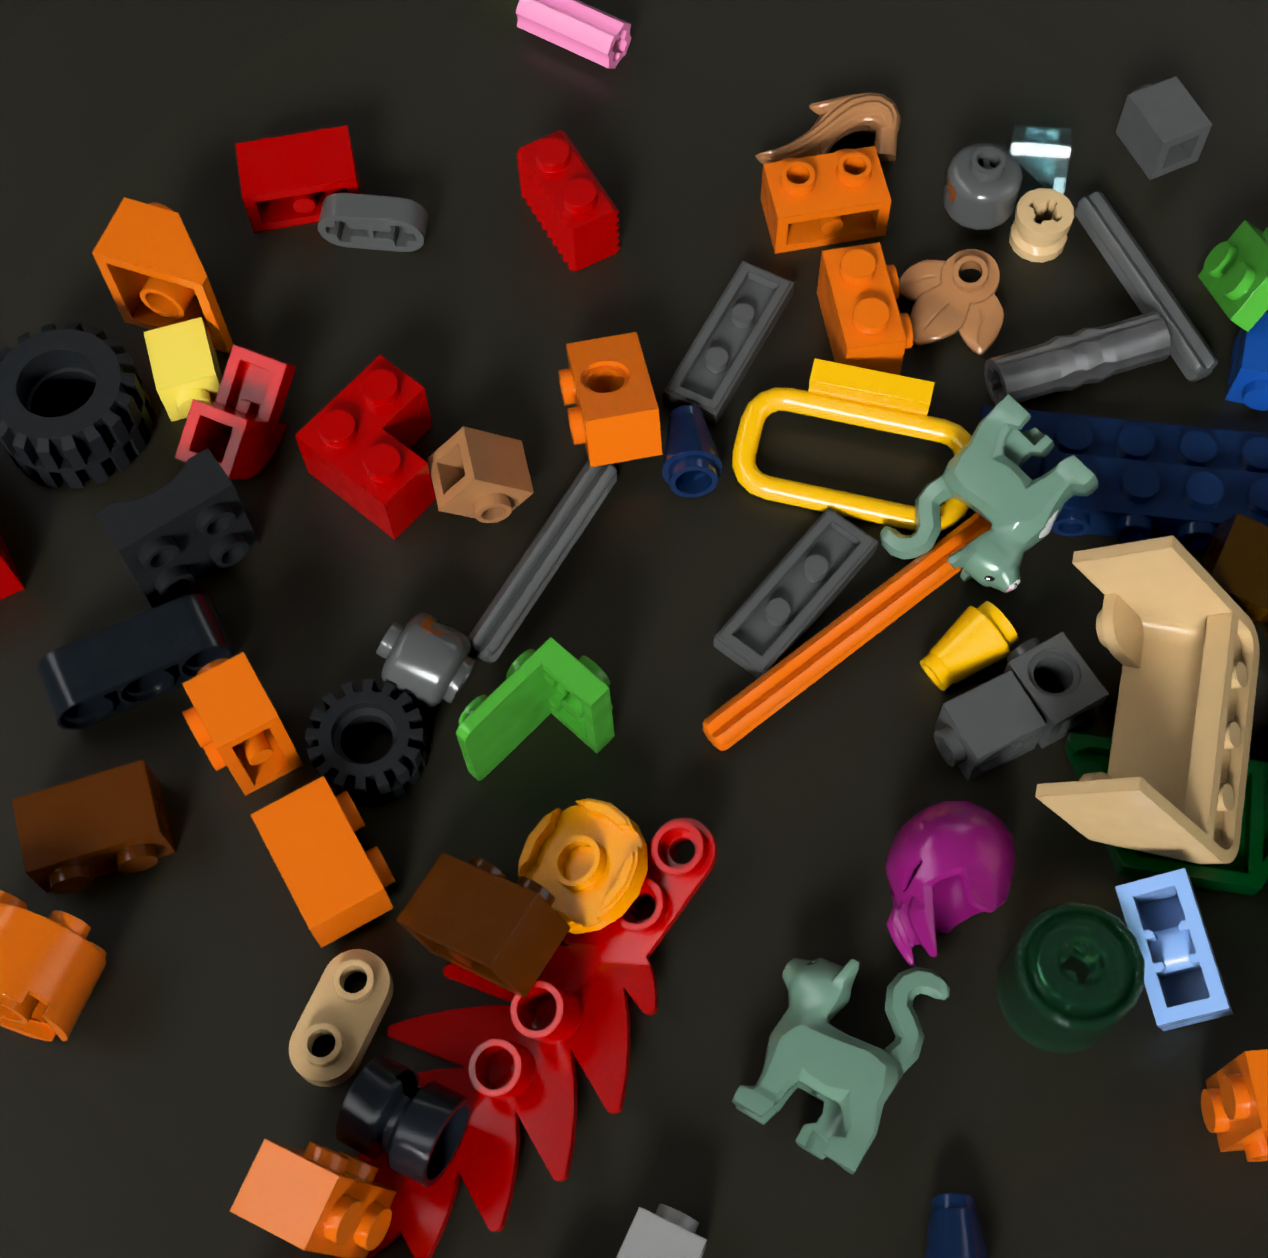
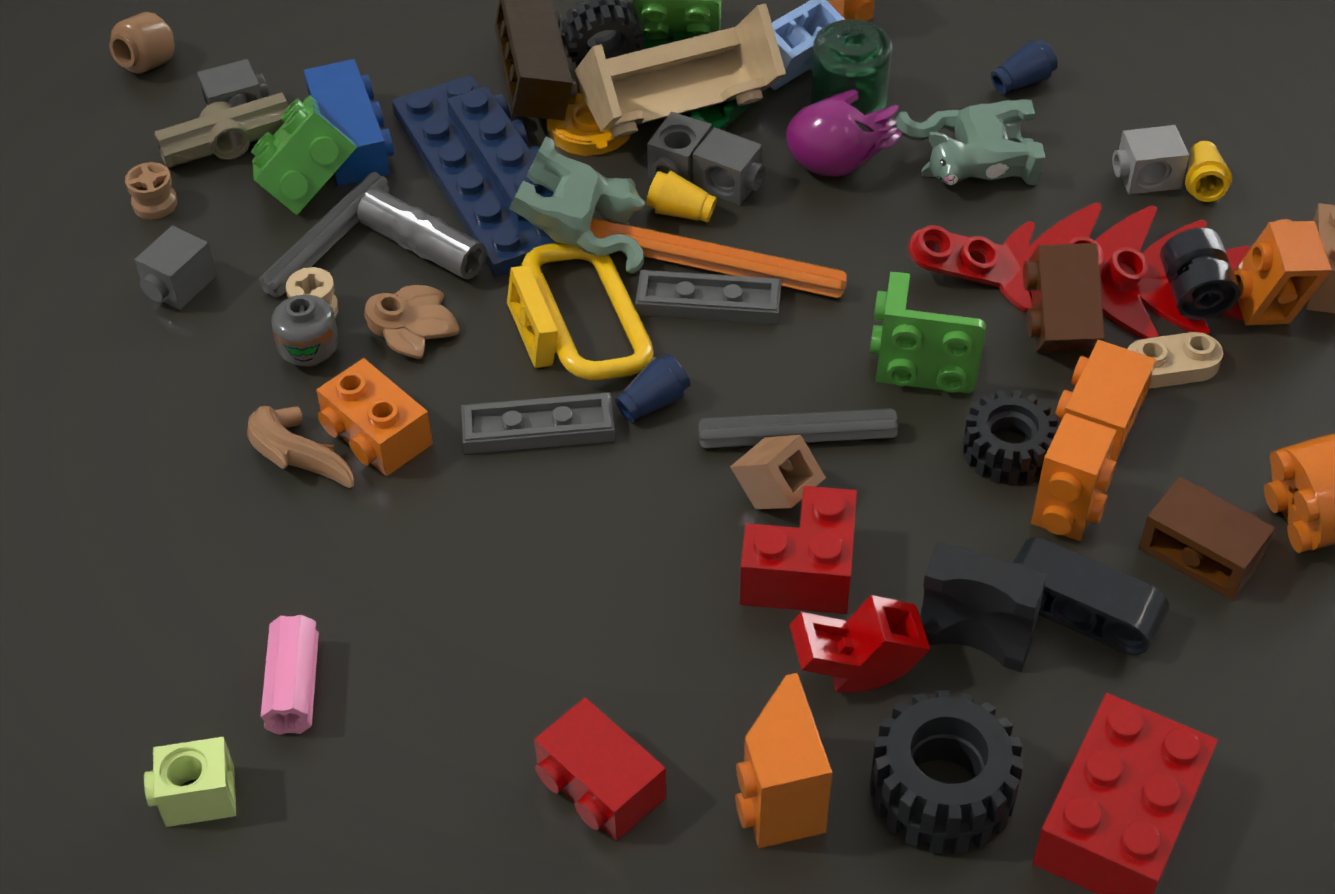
camera: 125 degrees left, 15 degrees down
(183, 365) = (847, 721): light yellow brick -> none
(373, 222) = (604, 686): dark grey beam -> none
(426, 659) = (929, 430): dark grey head -> none
(568, 200) = (490, 564): red brick -> none
(588, 861) = (983, 284): light orange tile -> none
(612, 398) = (656, 408): orange brick -> none
(861, 308) = (470, 346): orange brick -> none
(1043, 153) = (241, 312): clear light blue slope -> none

